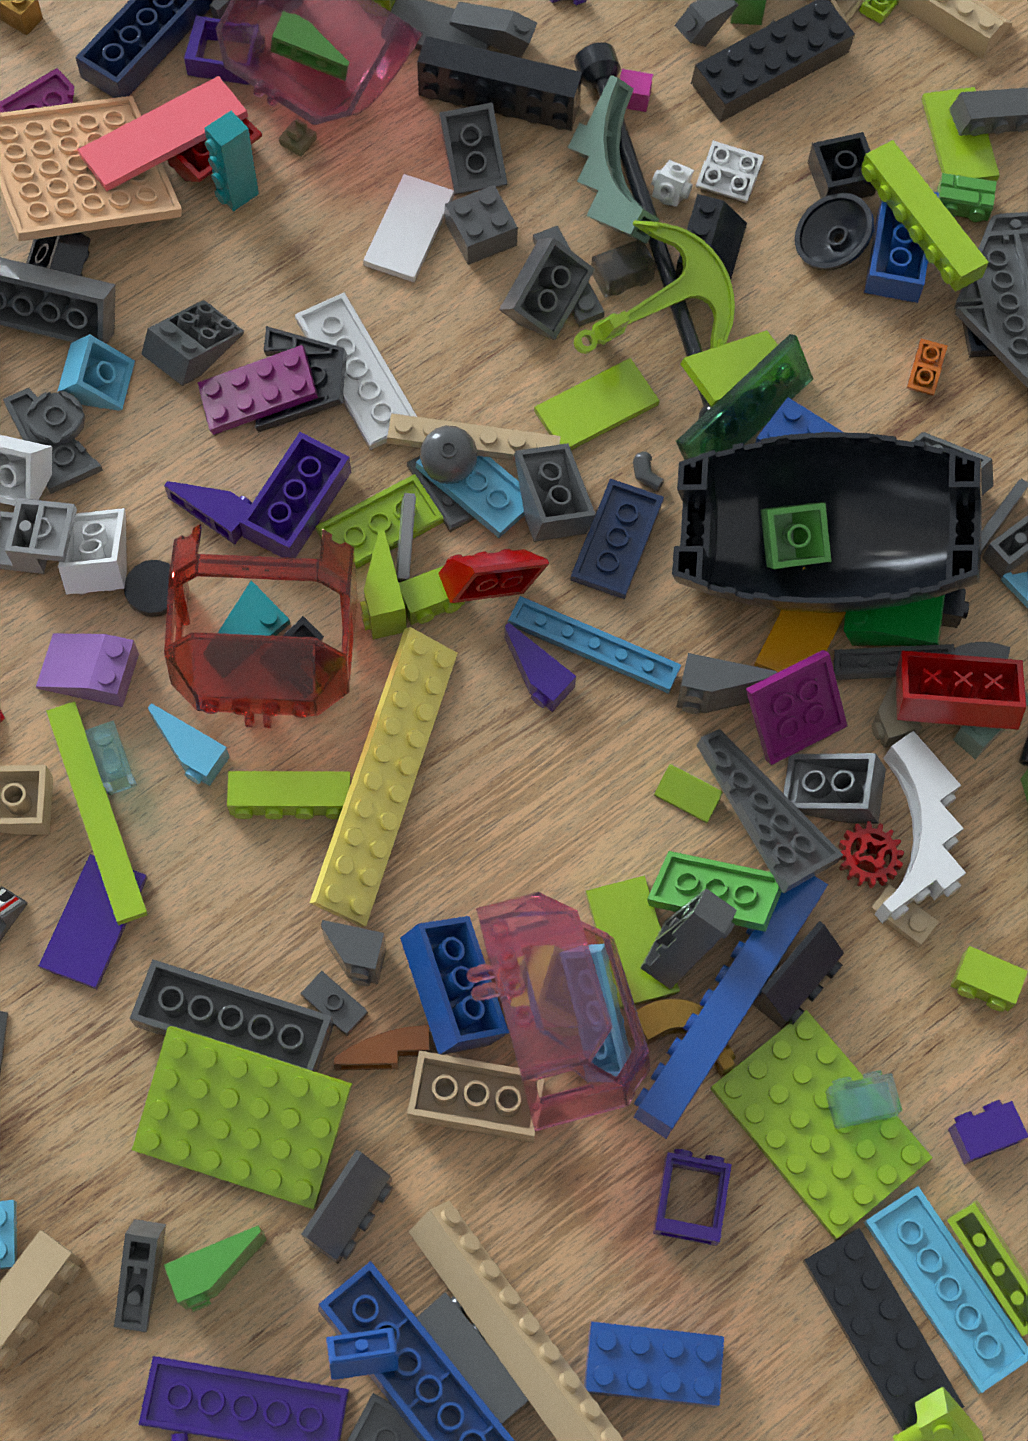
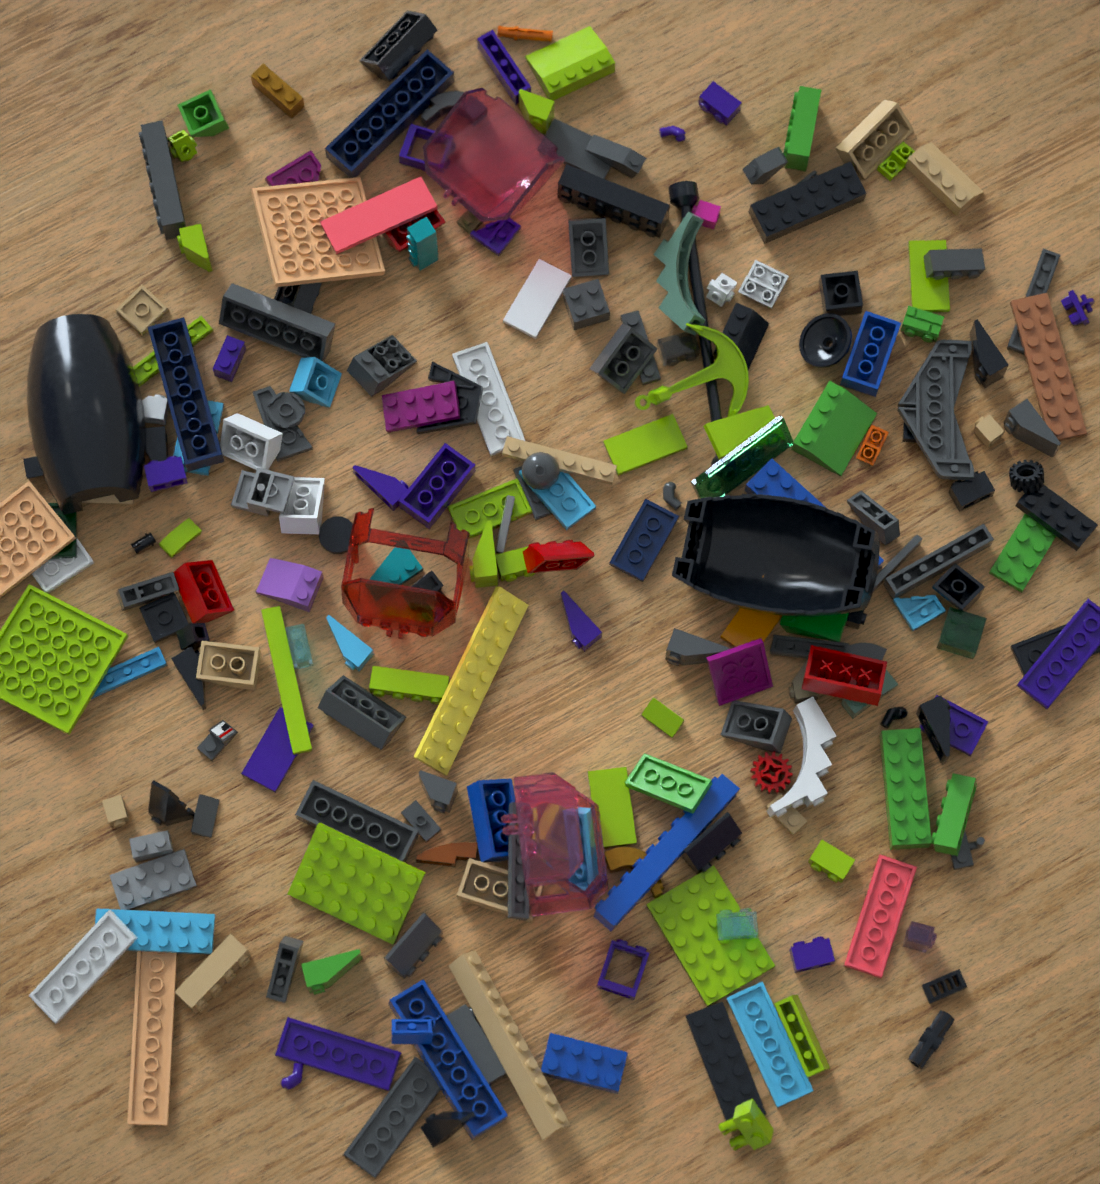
camera: 10 degrees right, 5 degrees up
(219, 845) = (361, 712): none -> dark grey slope
(304, 44) = (481, 154): bright green slope -> none
(339, 149) = (497, 235): none -> dark purple wing
(503, 1073) = (517, 894): none -> dark grey plate
(553, 493) = (605, 504): dark grey slope -> none
(594, 644) = (617, 611): dark azure plate -> none
(688, 937) = (644, 811): dark grey wedge -> none
(779, 830) = (714, 749): dark grey wing -> none
(796, 535) = (758, 557): bright green slope -> none
(867, 351) = (834, 429): none -> bright green slope
(924, 216) = (885, 341): lime brick -> none

